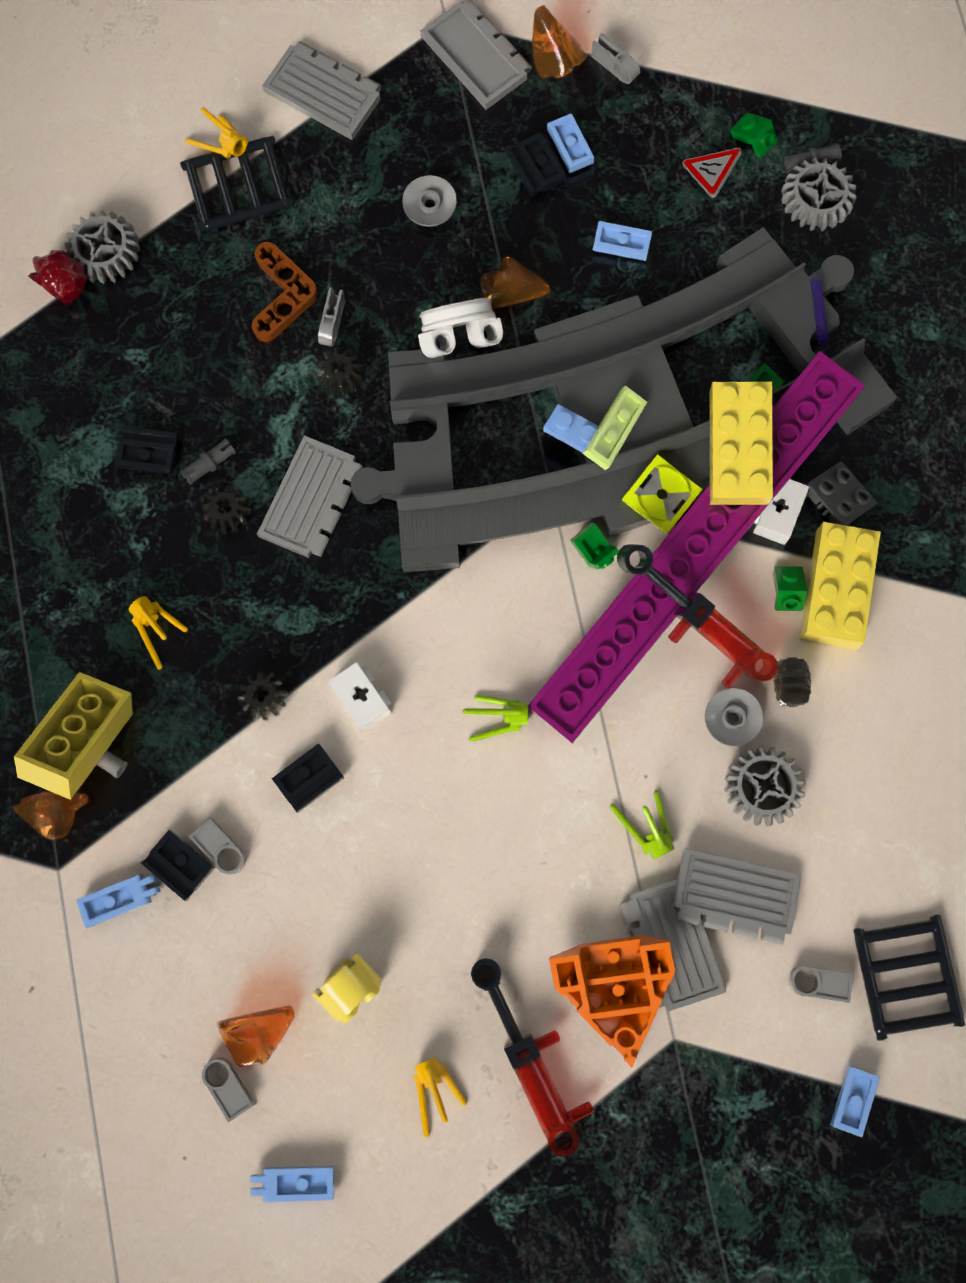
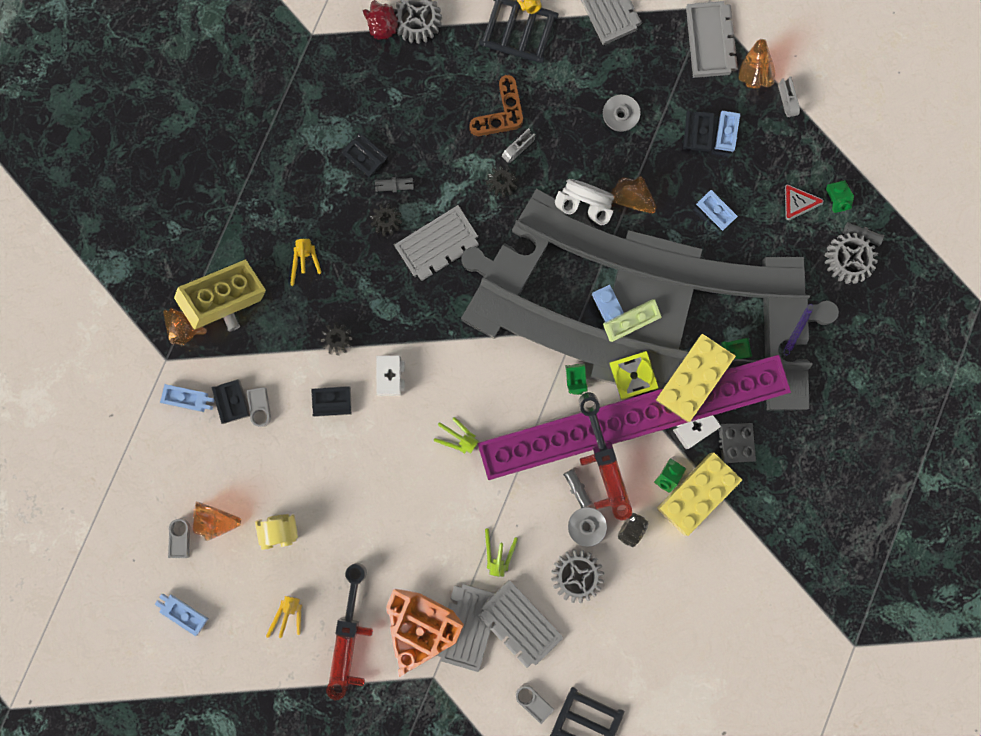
camera: 30 degrees right, 5 degrees up
(688, 679) = (577, 488): none -> dark grey pin

